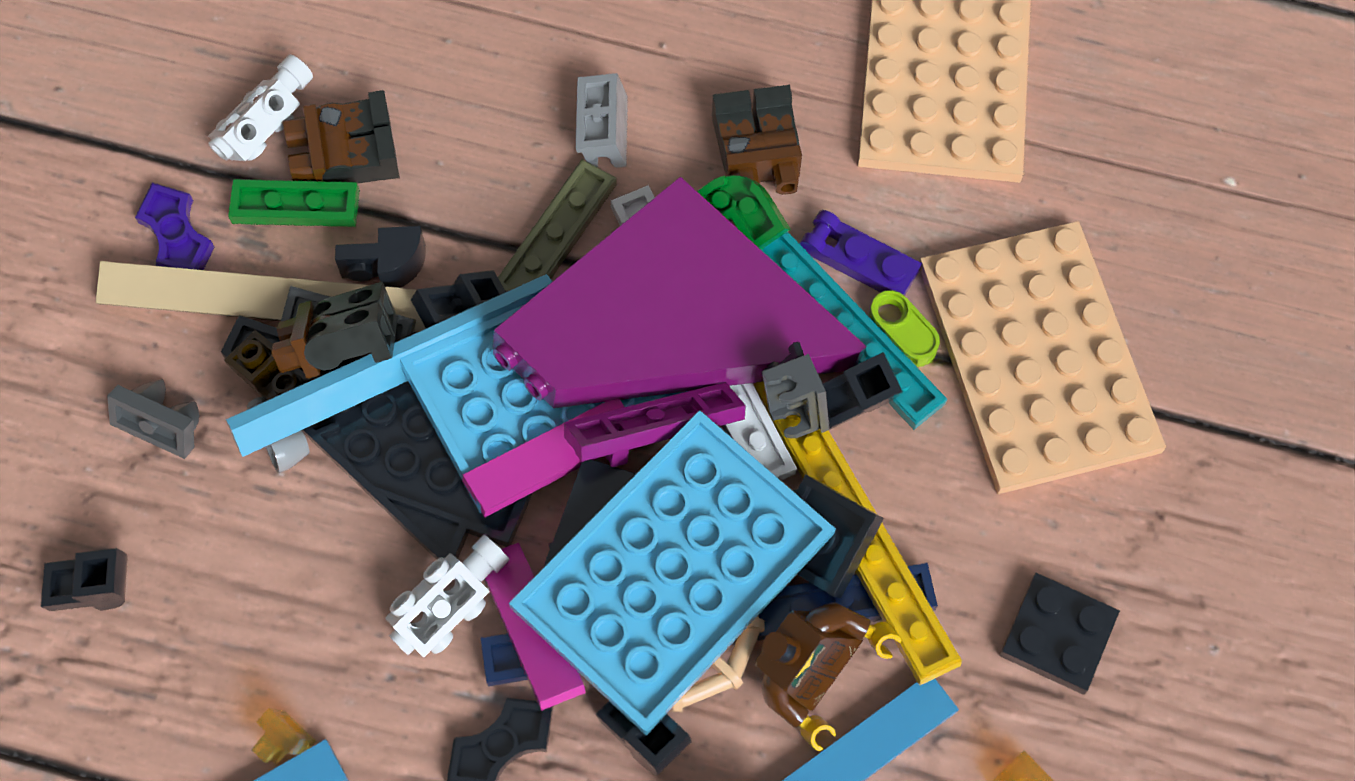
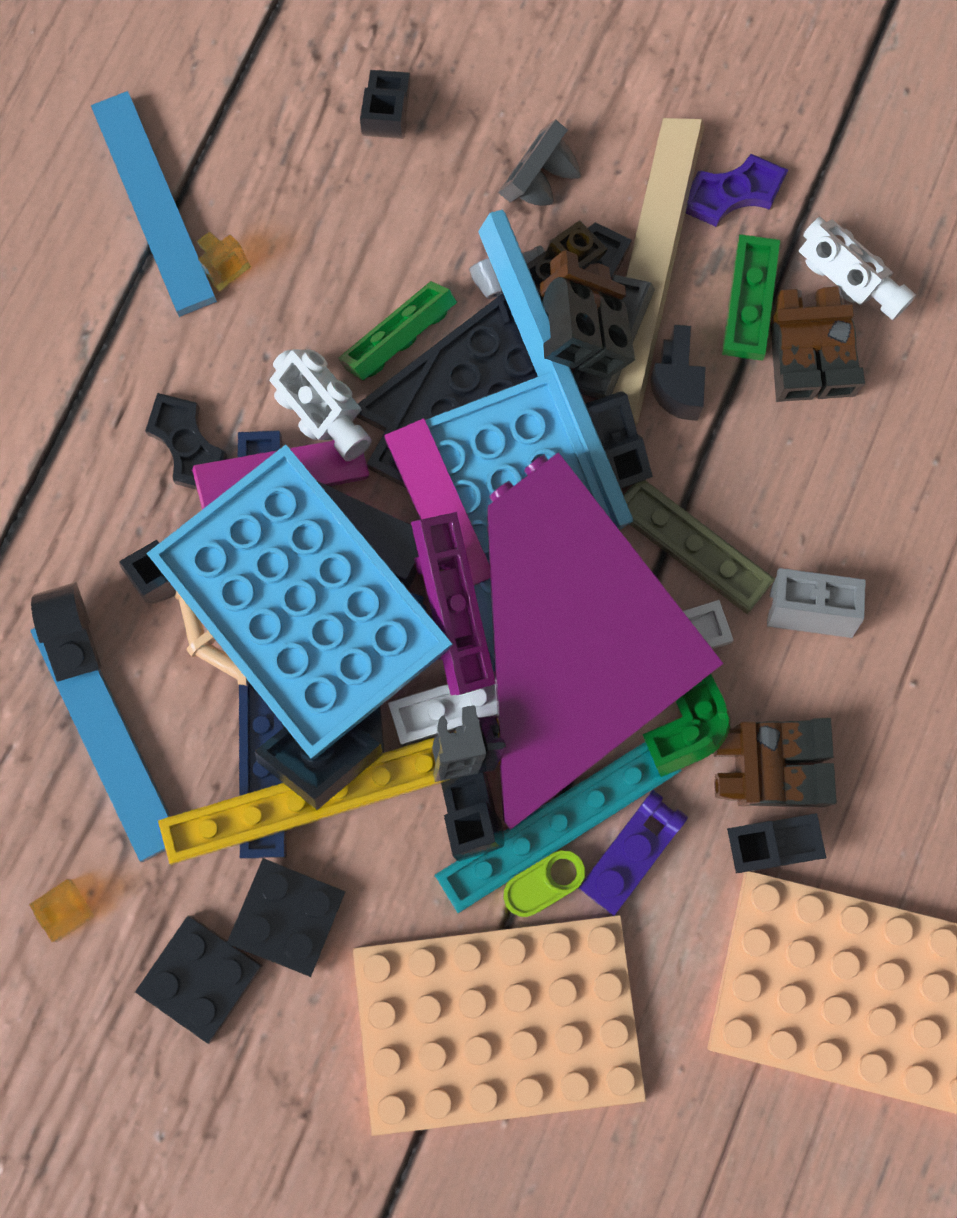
camera: 100 degrees right, 10 degrees up
(354, 534) = (397, 330): none -> green plate
(807, 658) = (202, 720): reddish brown torso -> none
(832, 134) = (776, 843): none -> black brick
(984, 555) = (286, 917): none -> black plate

